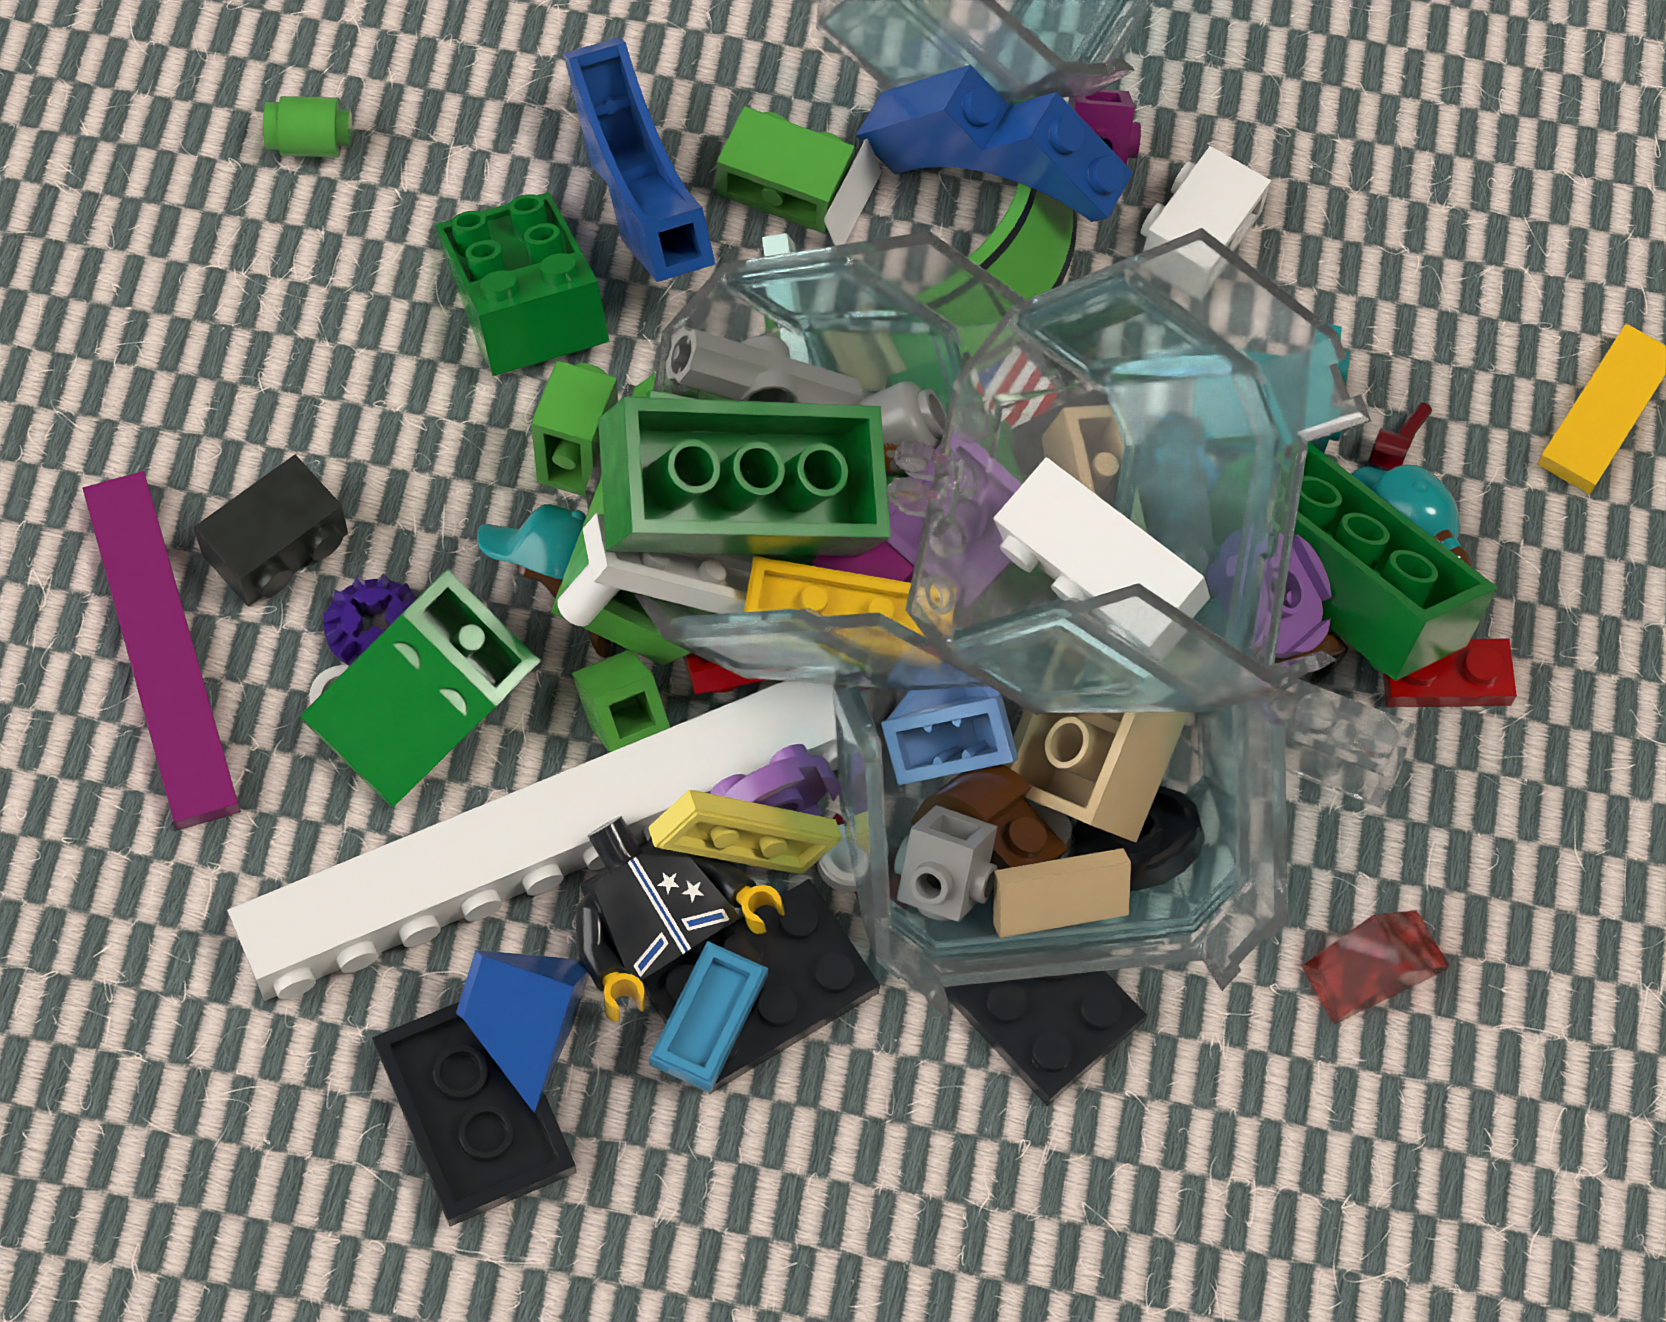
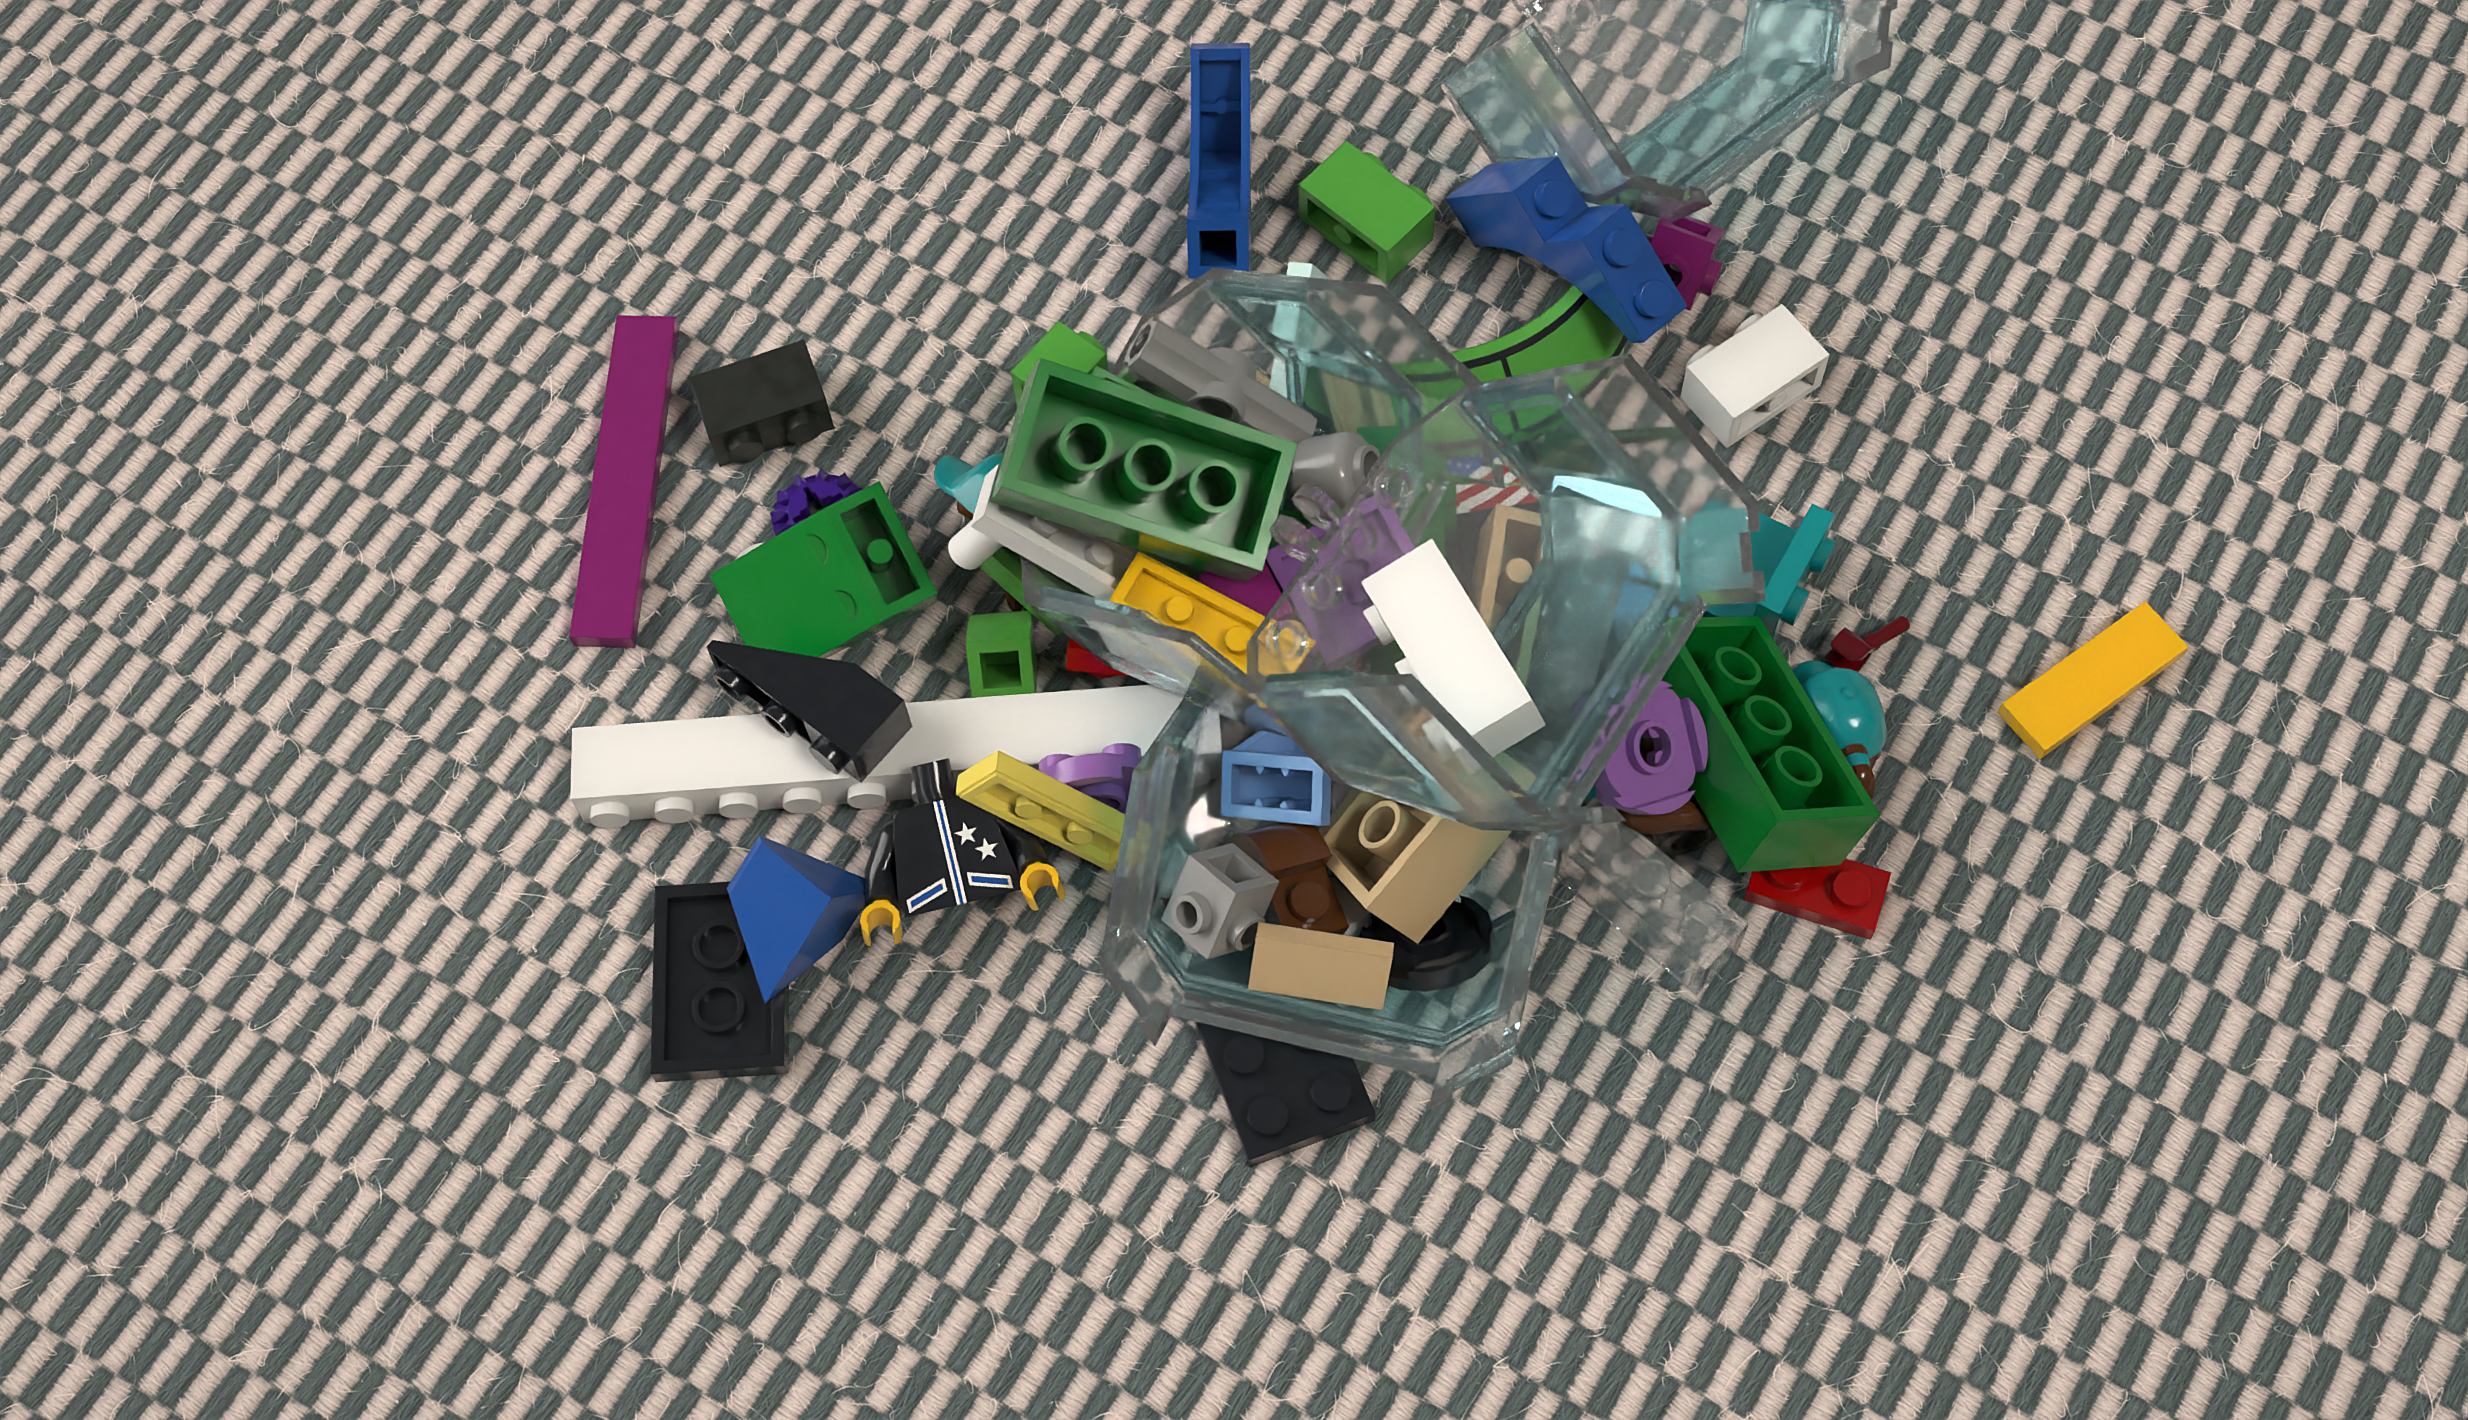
camera: 30 degrees right, 0 degrees up
(307, 126) = (946, 50): bright green brick -> none
(476, 801) = (825, 701): none -> black slope
(523, 283) = (1079, 247): green slope -> none
(708, 1017) = (958, 971): dark azure tile -> none
(809, 979) = (1018, 968): black plate -> none
(852, 194) = (1421, 253): white sticker -> none
(1374, 963) = (1624, 1141): clear red slope -> none

